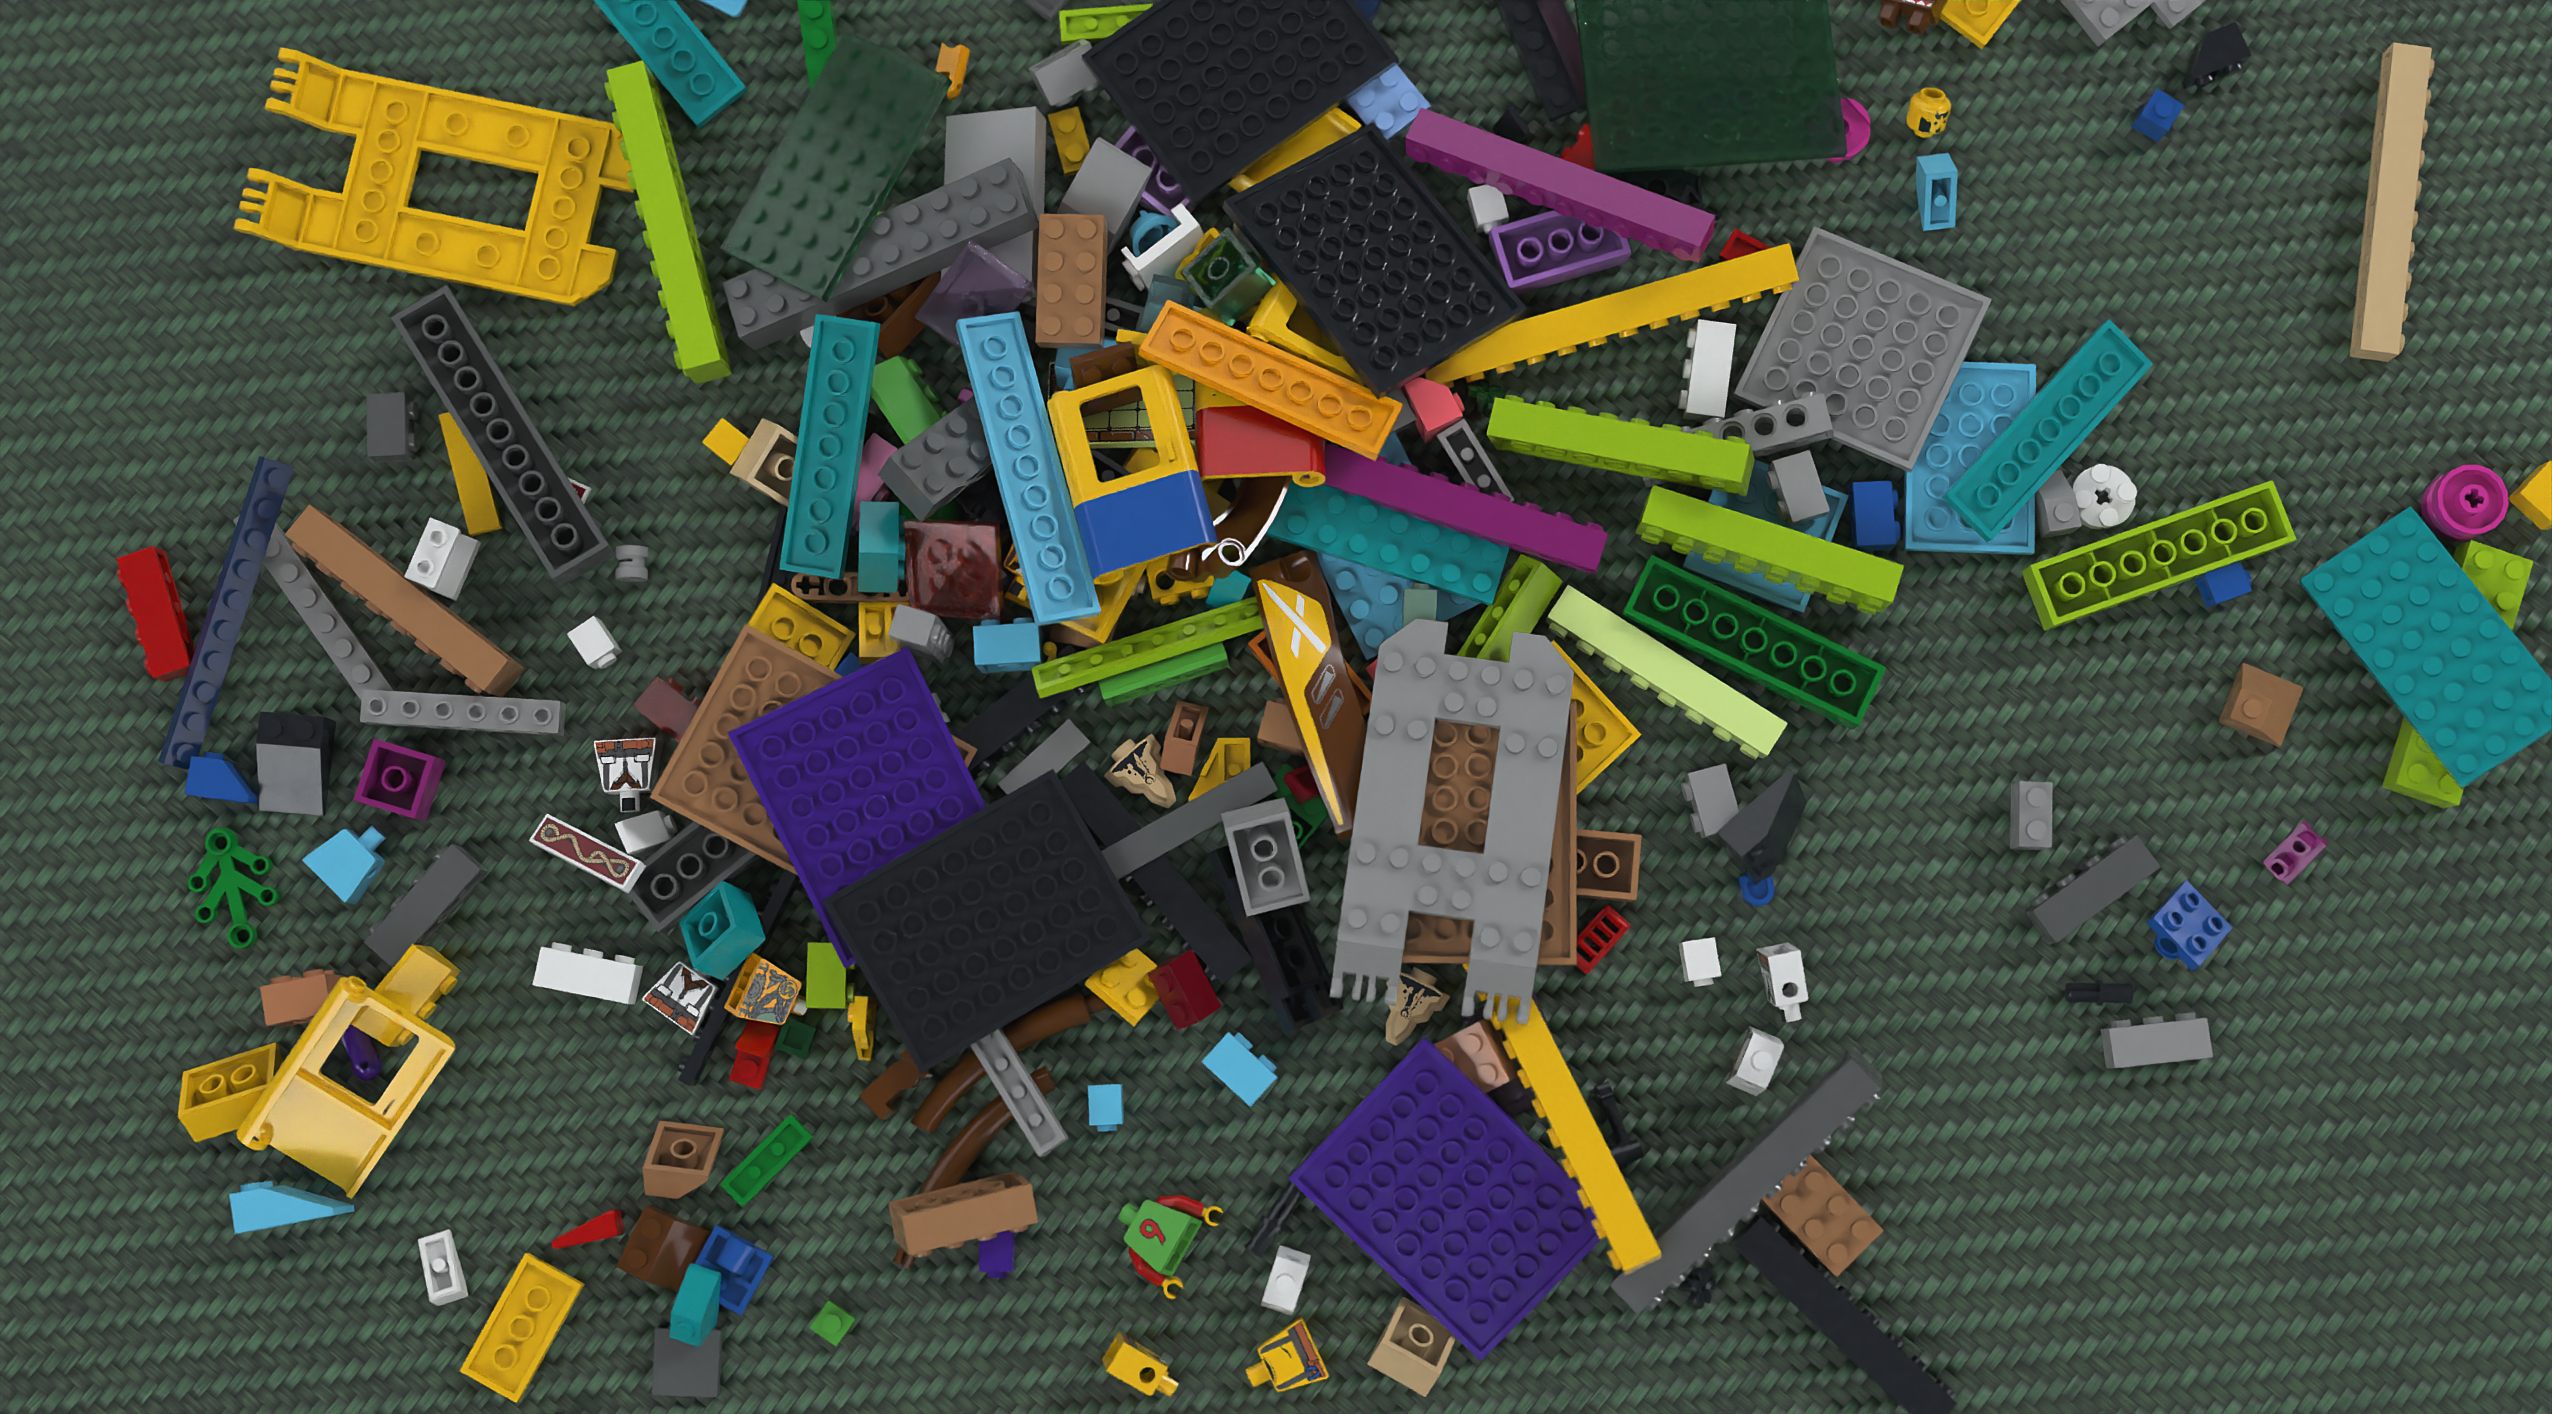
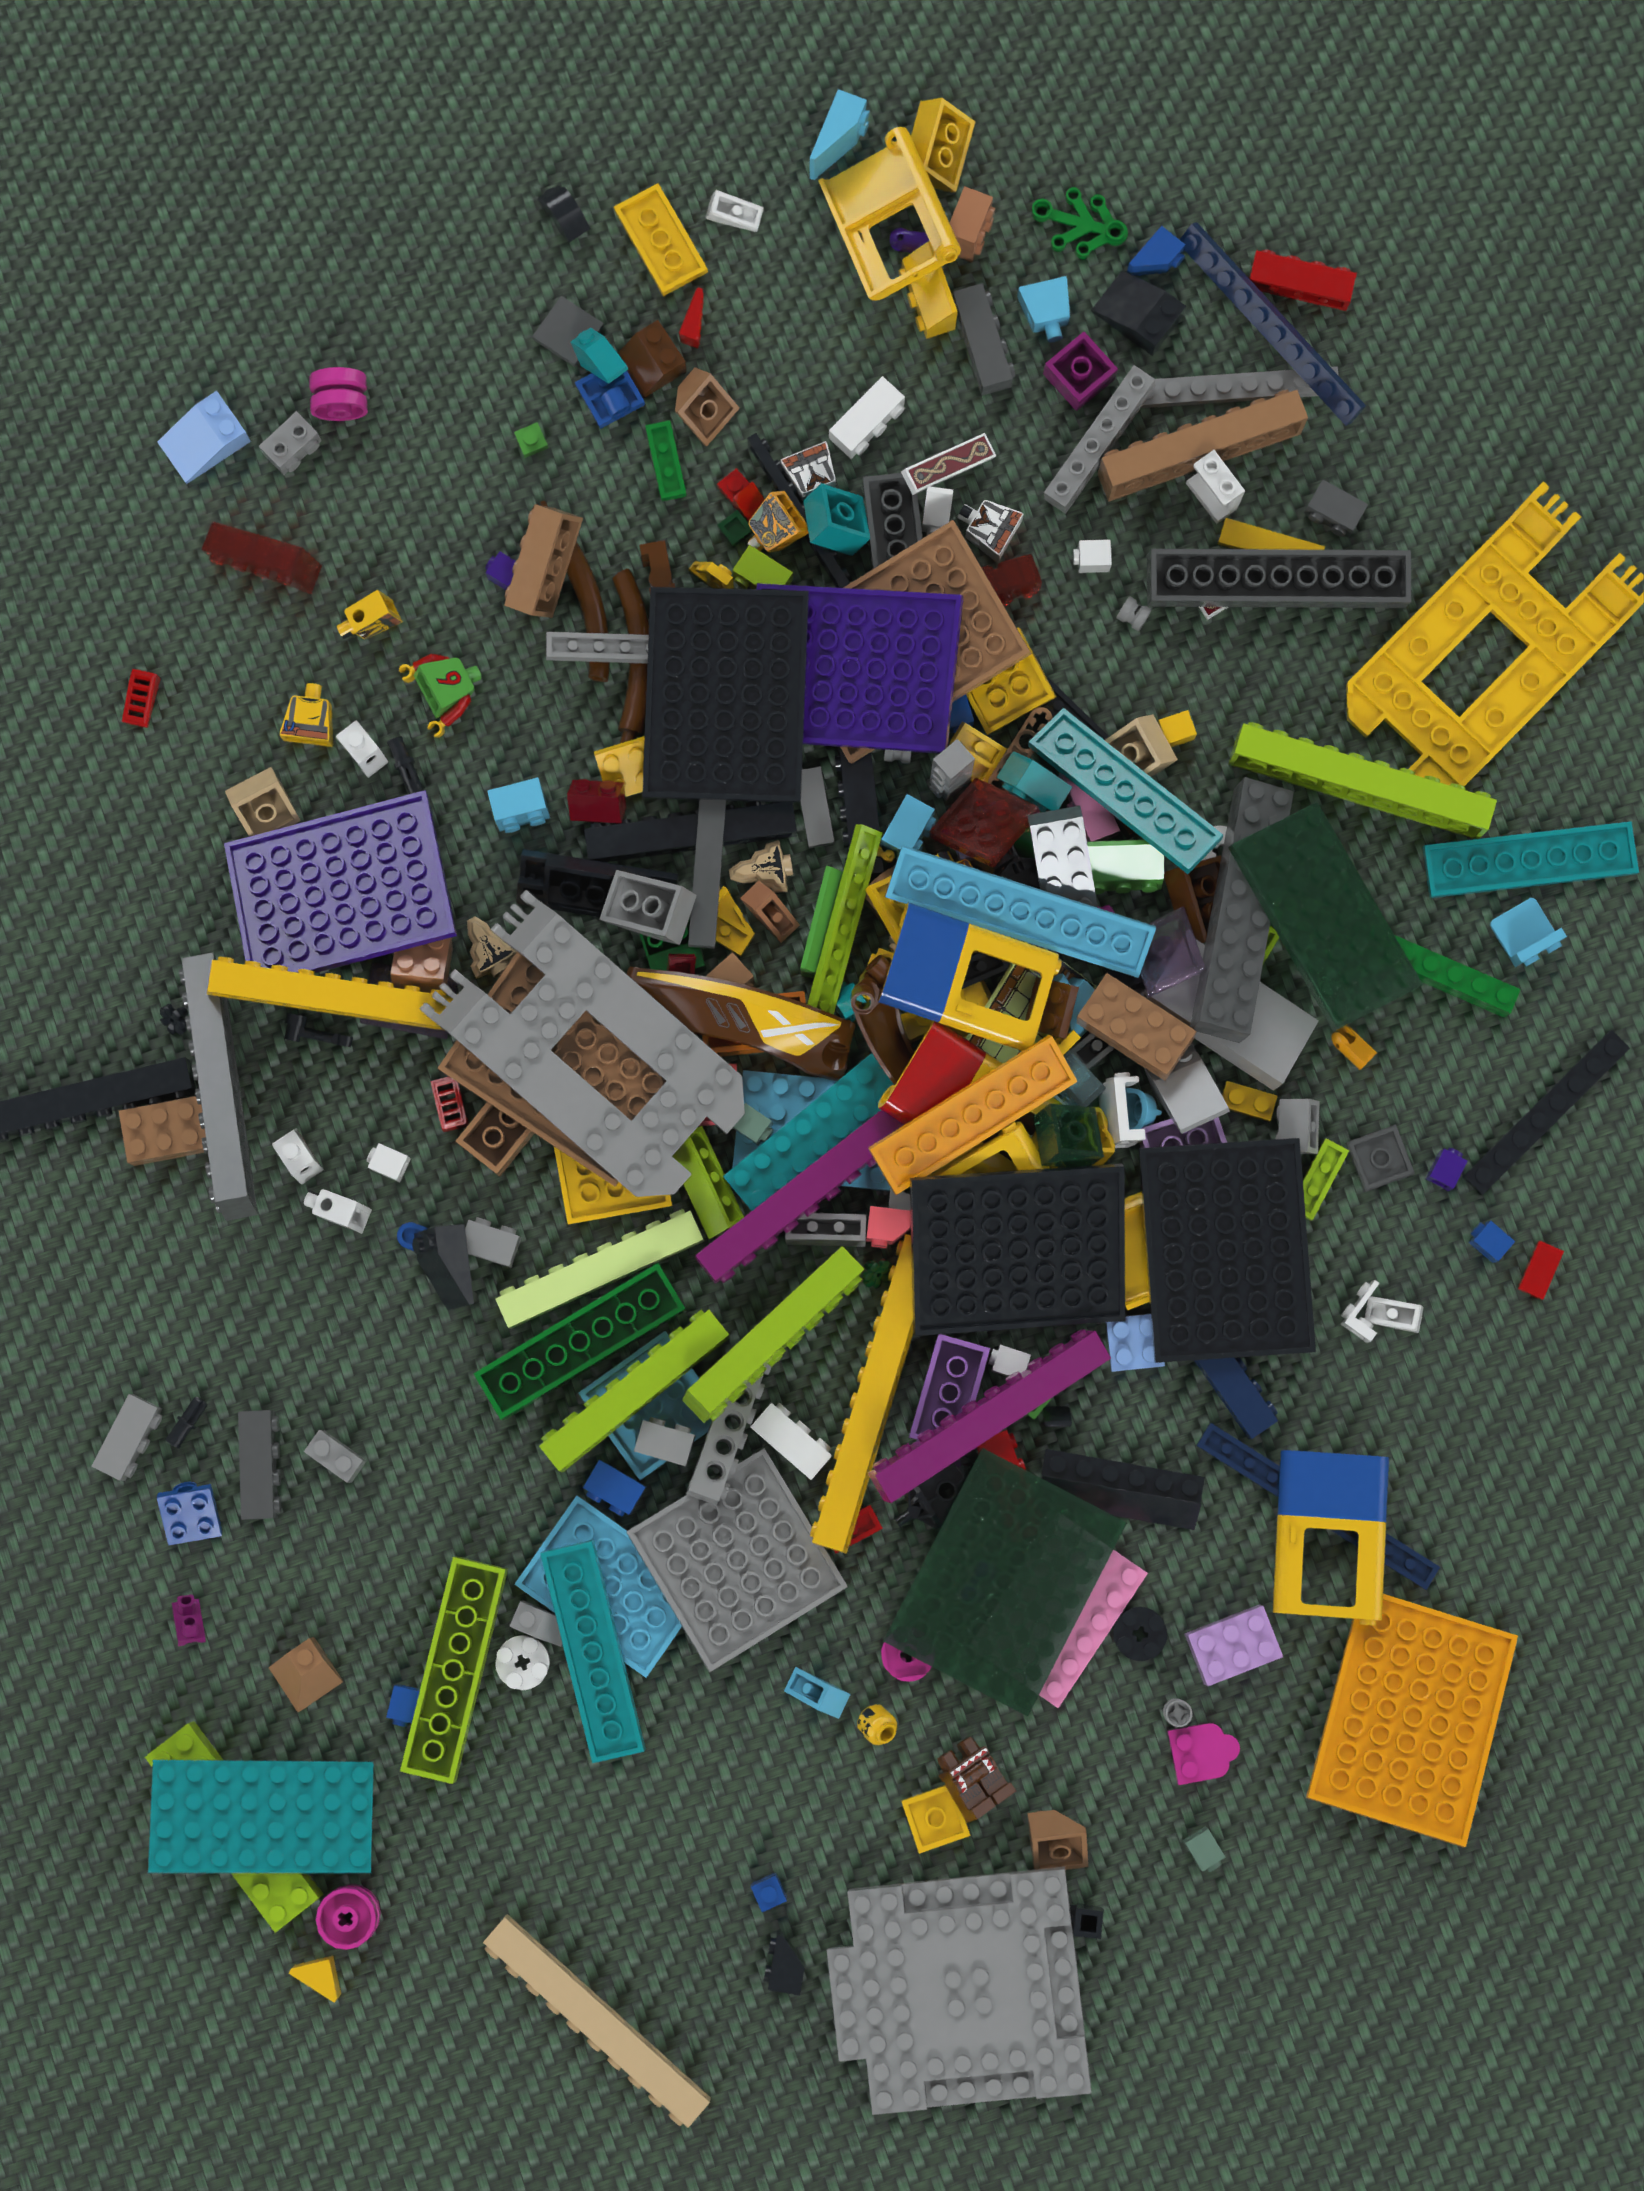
camera: 115 degrees right, 0 degrees up
(1106, 1106) = (555, 703): medium azure brick -> none

